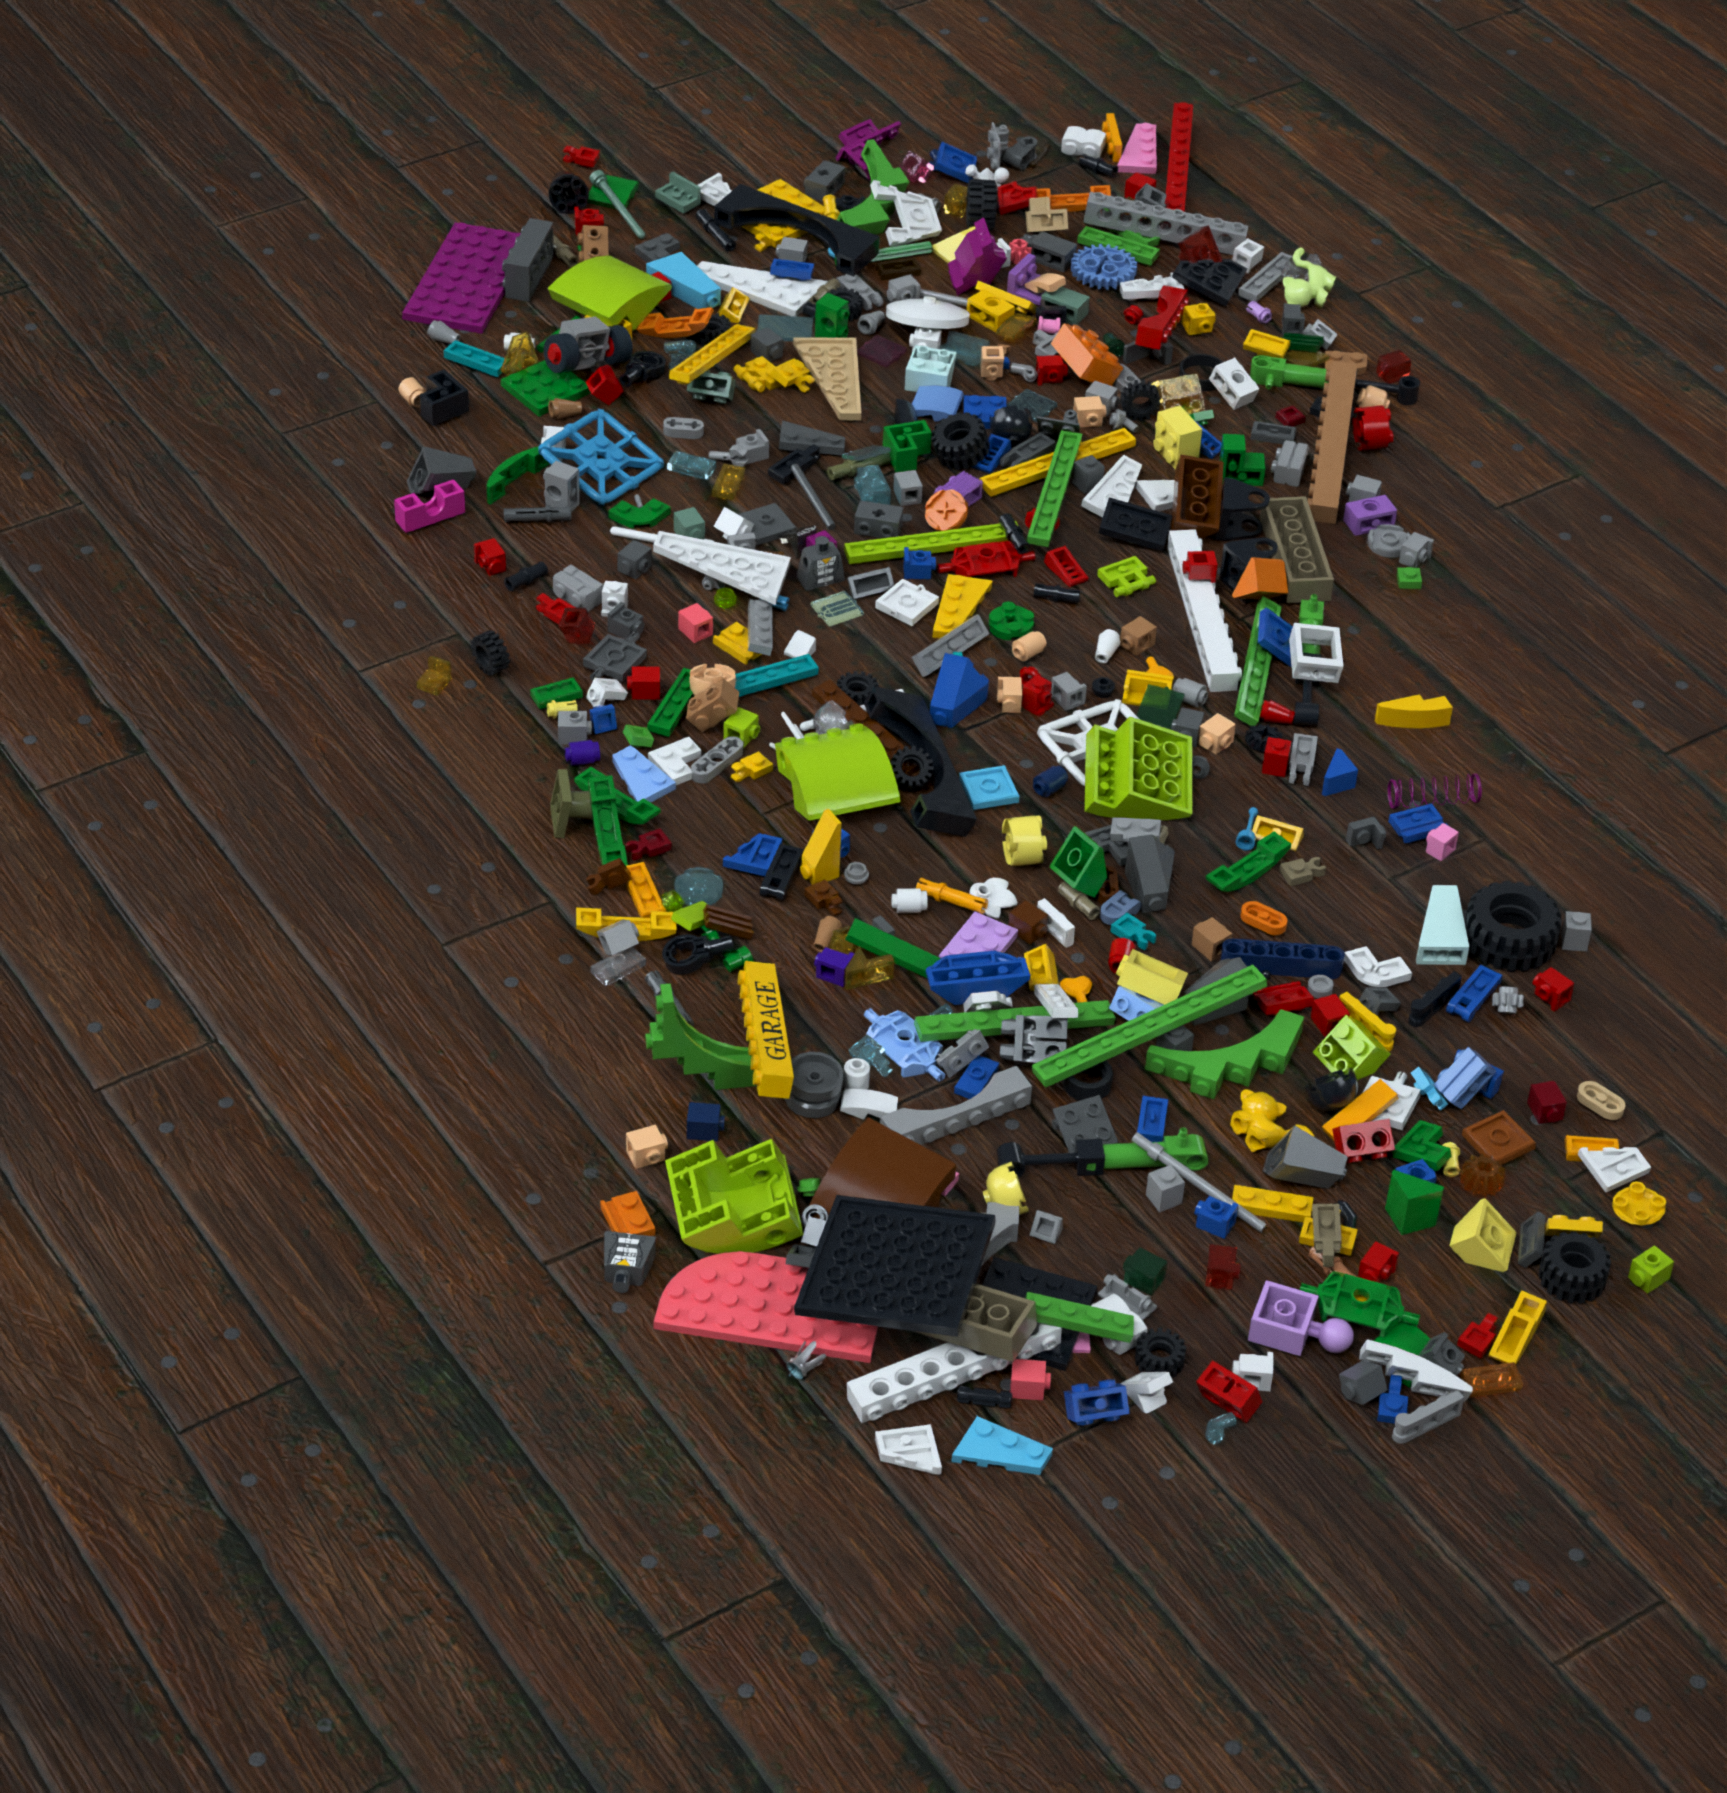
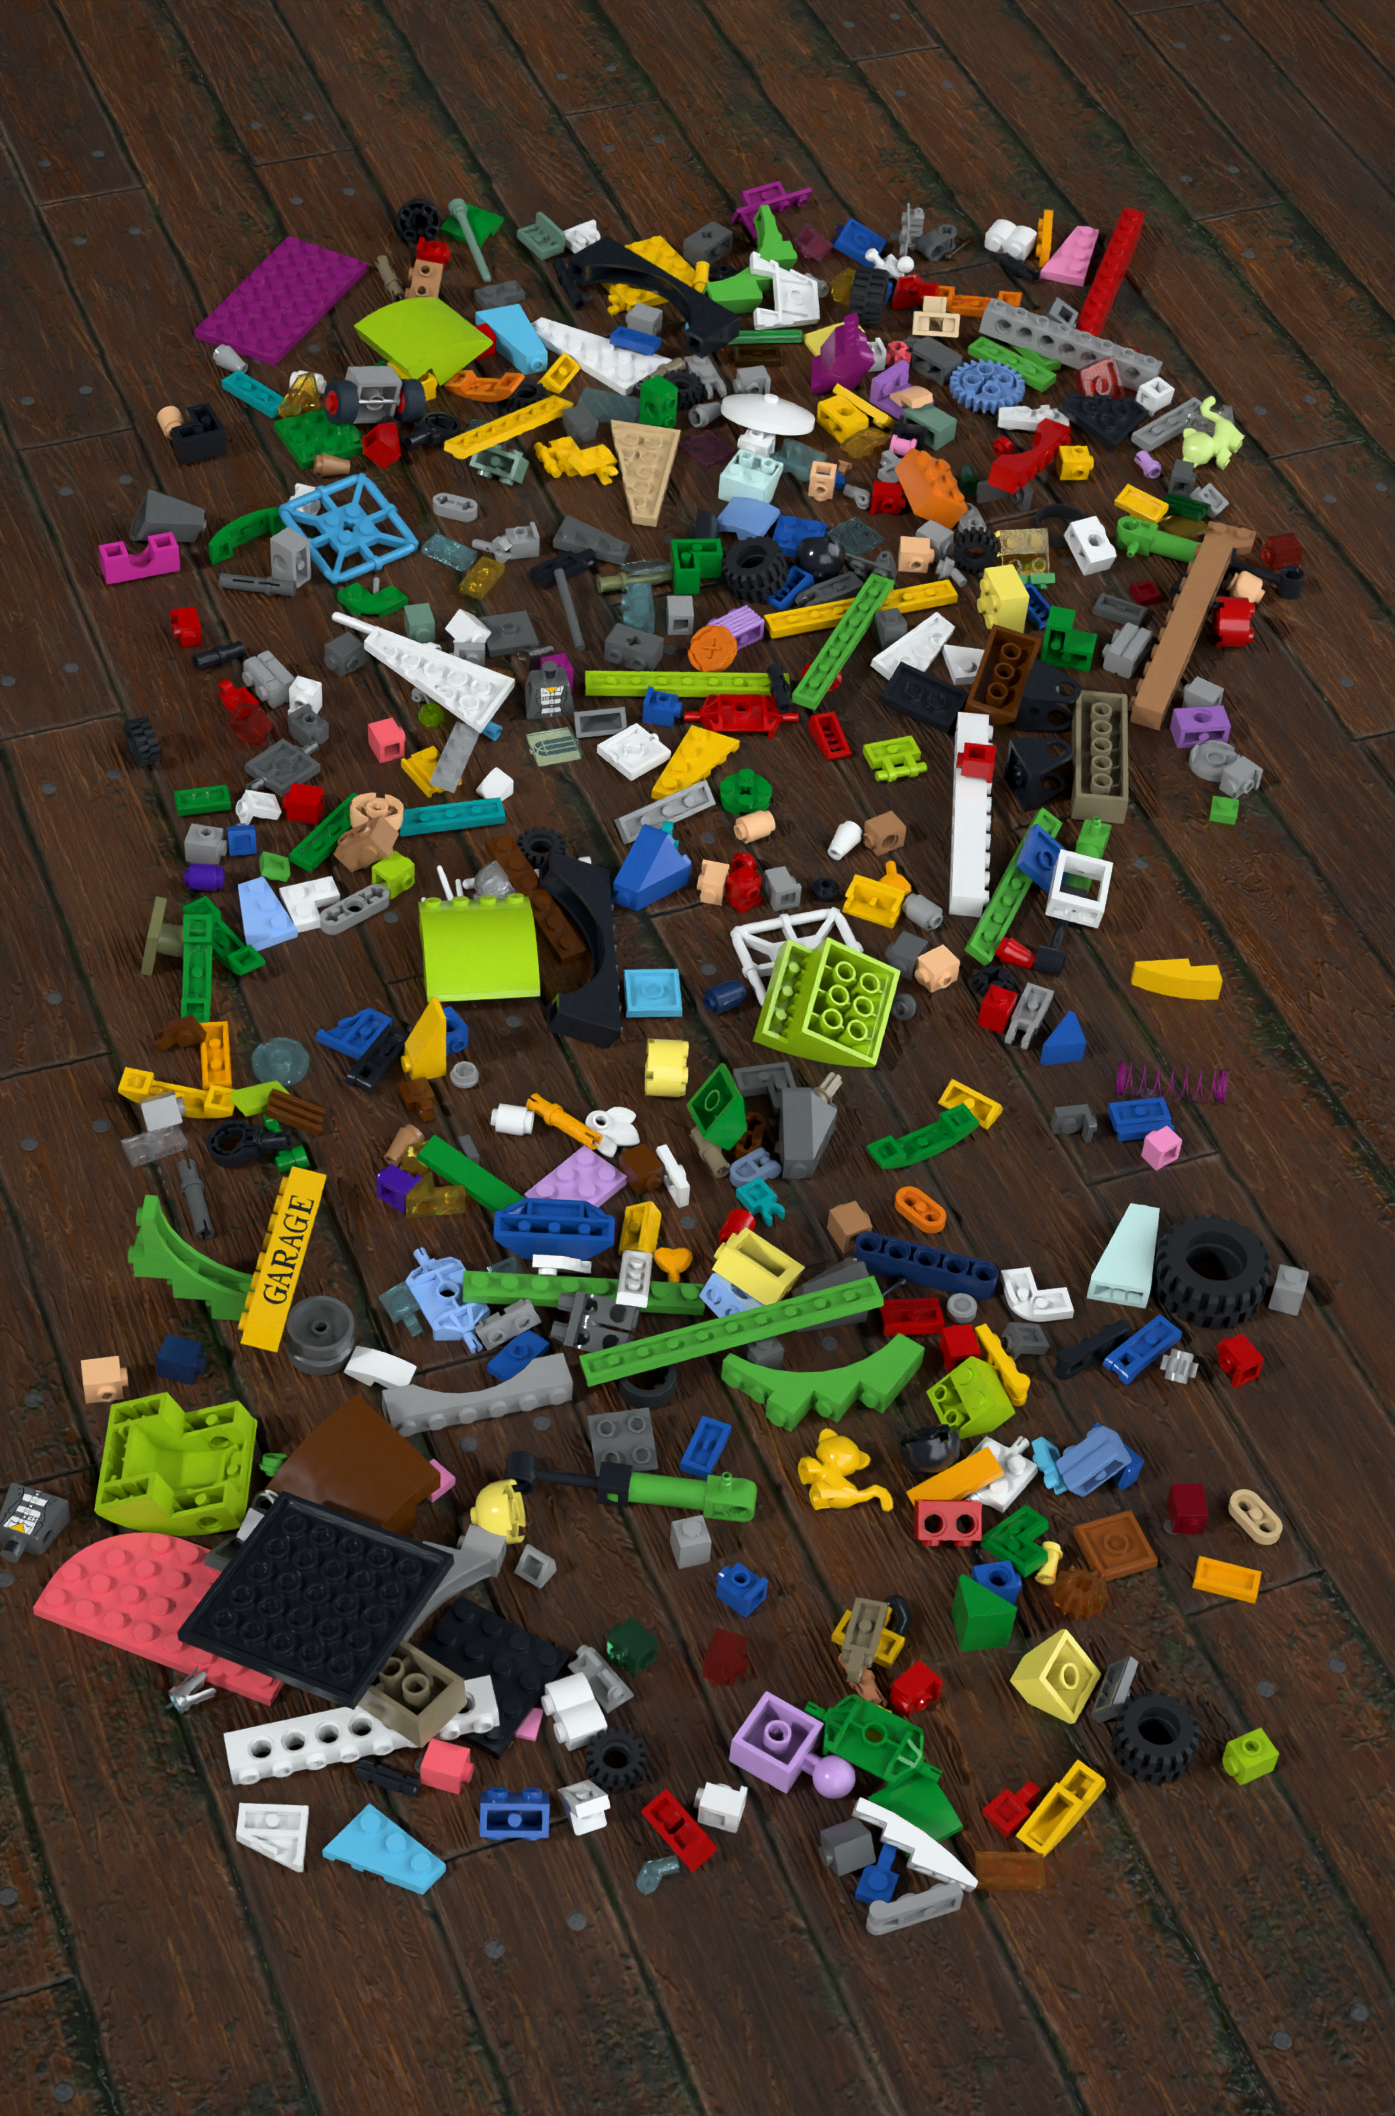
camera: 10 degrees right, 5 degrees up
(436, 676) = (76, 760): clear yellow bracket -> none
(528, 259) = (349, 290): dark grey brick -> none
(554, 707) = (201, 818): light yellow pin -> none
(584, 156) = (455, 181): red plate -> none
(628, 1215) = (53, 1465): orange plate -> none
(651, 843) = (243, 1000): dark red plate -> none
(672, 901) = (242, 1075): clear neon green plate -> none
(684, 347) = (484, 412): clear light blue arm -> none
(753, 766) = (392, 922): yellow plate -> none
(856, 1074) = (374, 1331): white brick -> none
(917, 757) = (561, 972): black tyre -> none
(944, 297) = (794, 396): light grey bar -> none
(1057, 593) = (808, 766): black pin -> none
(1083, 1318) = (524, 1701): bright green plate -> none
(1125, 828) = (797, 1073): light grey hinge -> none
(1136, 182) = (1056, 290): red brick -> none
(1157, 1152) = (691, 1496): light grey bar -> none
(1160, 706) = (880, 925): clear green piece -> none
(1247, 834) = (934, 1100): dark azure hinge -> none
(1262, 578) = (1045, 787): orange slope -> none
(1273, 1203) = (814, 1582): yellow plate -> none
(1299, 872) = (983, 1157): dark tan plate -> none
(1305, 1160) = (868, 1537): dark grey slope -> none
(1443, 1353) = (945, 1827): dark grey brick -> none
(1561, 1223) = (1153, 1681): yellow plate -> none
(1614, 1166) = (1245, 1608): white wing -> none
(1639, 1205) = (1261, 1665): yellow dish -> none

